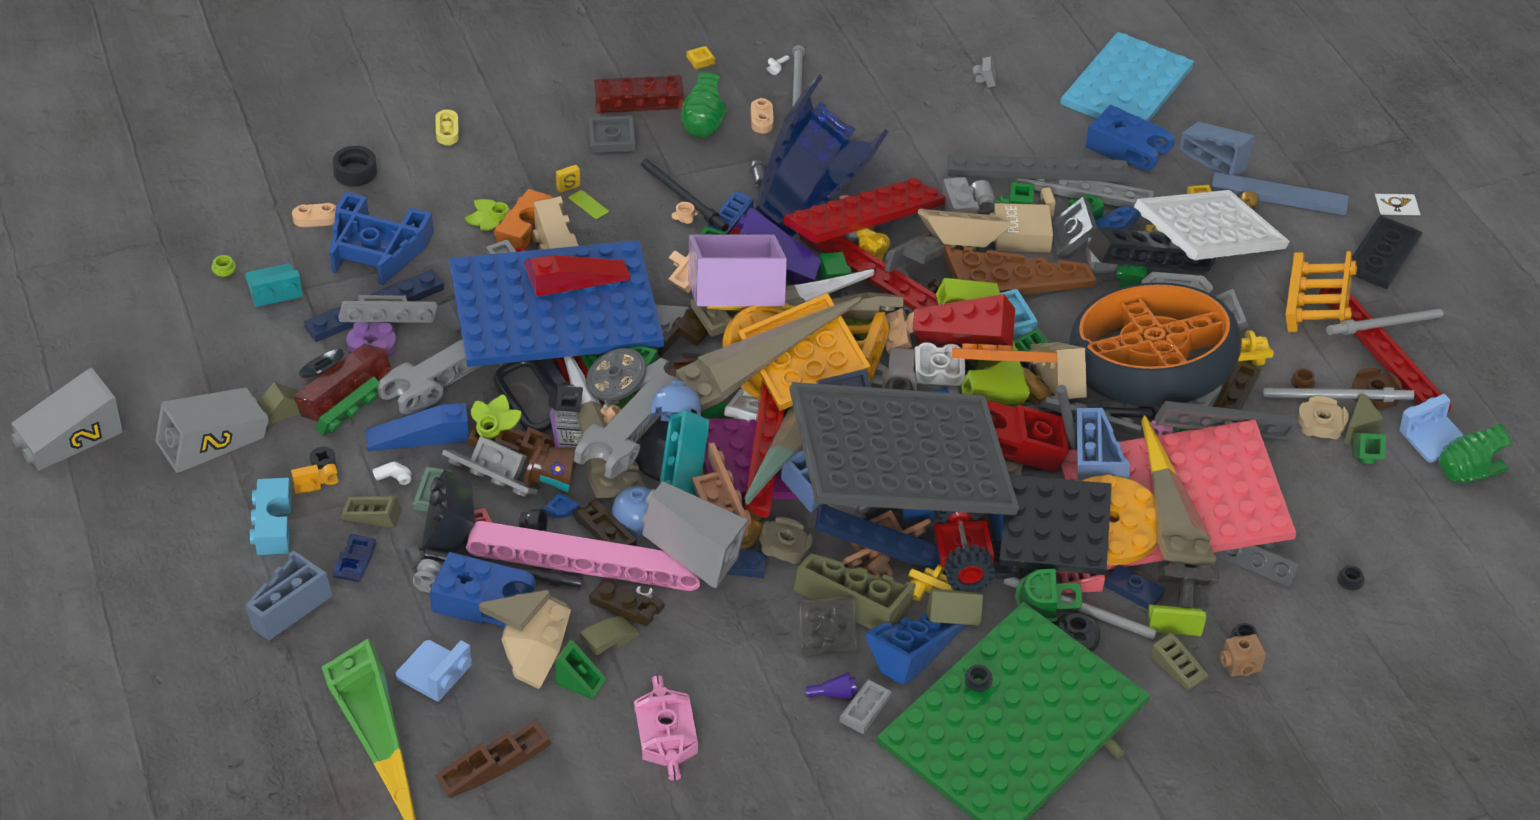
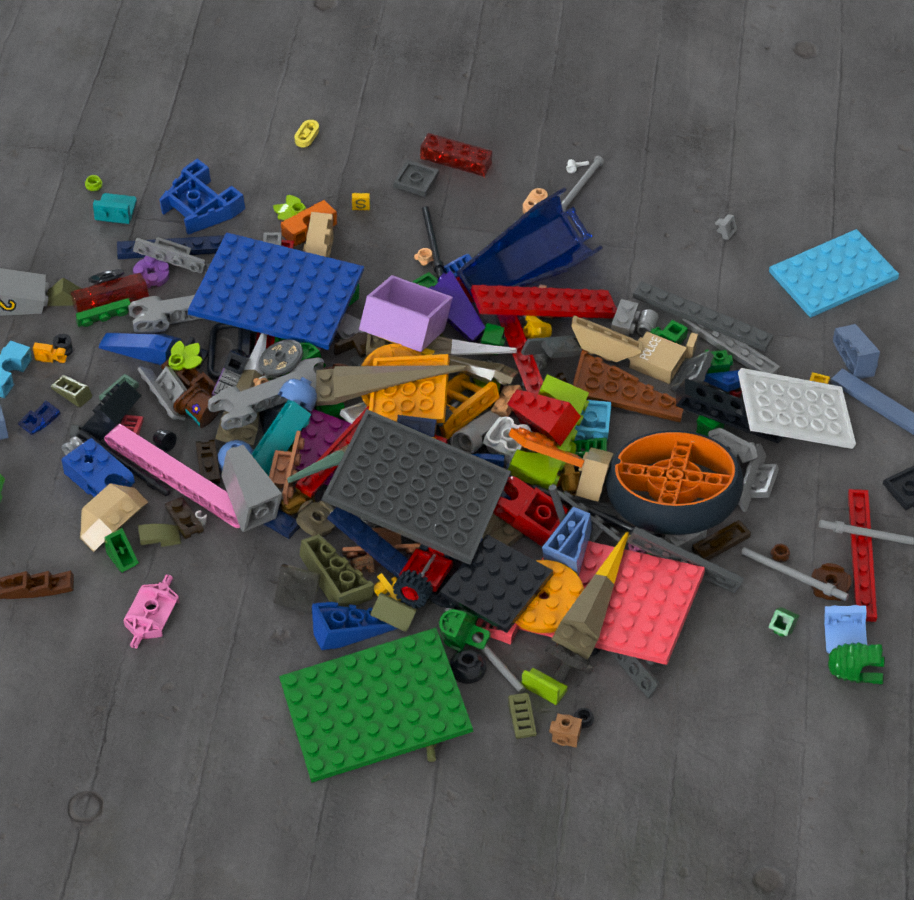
camera: 30 degrees right, 5 degrees up
(314, 215) = (173, 166): light nougat plate -> none
(350, 155) = (225, 131): black tyre -> none
(395, 470) = (107, 372): white arm -> none
(434, 668) = (36, 511): light blue bracket -> none
(515, 610) = (101, 493): dark tan tile -> none
(561, 507) = (191, 435): blue tile -> none
(568, 273) = (292, 272): red wedge -> none
(588, 204) = (365, 226): lime sticker -> none
(700, 57) = (524, 141): yellow tile -> none
(703, 108) = (488, 182): green hair -> none
(838, 687) = (280, 633): dark purple cone -> none
(865, 706) = (287, 653): light grey plate -> none
(980, 672) = (364, 661): black plate -> none
(1128, 138) = (792, 316): blue brick -> none
(1134, 587) = (534, 651): dark blue plate -> none
(1252, 196) = (852, 400): pearl gold hinge -> none
(1255, 349) = (753, 514): yellow hips -> none
(1300, 283) = (835, 478): light orange fence -> none
(1330, 427) = (769, 596): tan plate -> none
(1351, 578) = (694, 706): black plate -> none
(1364, 419) = (797, 600): olive slope -> none

